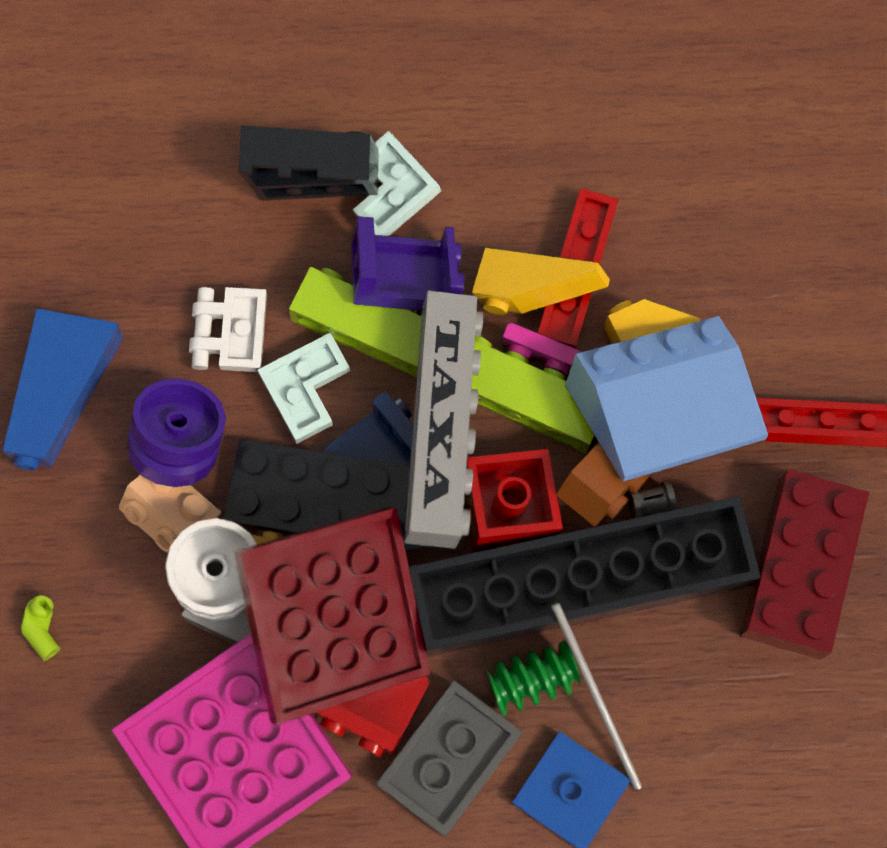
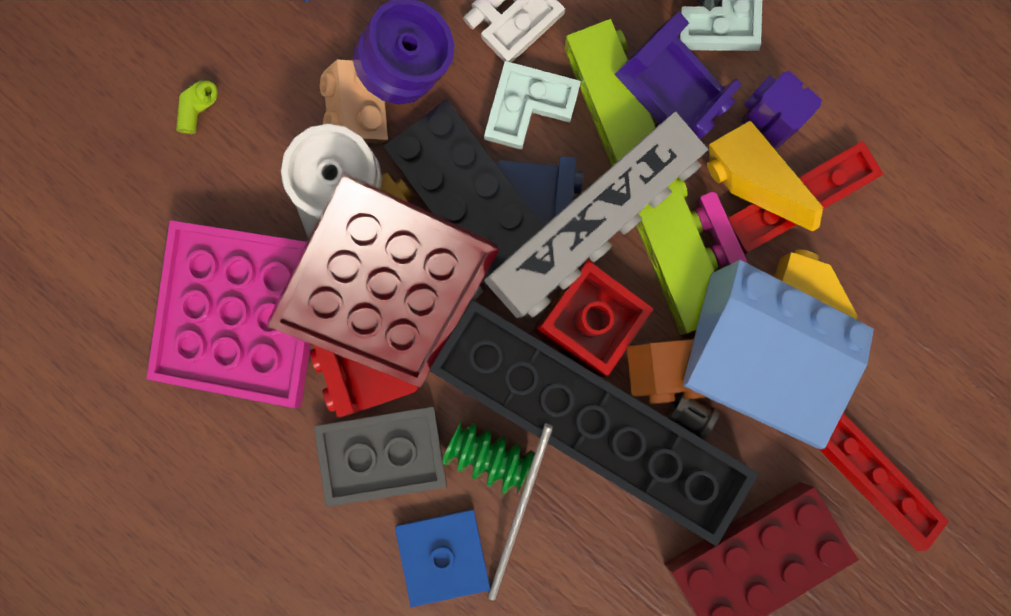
camera: 50 degrees right, 10 degrees up
(498, 219) = (780, 107): none -> dark purple brick

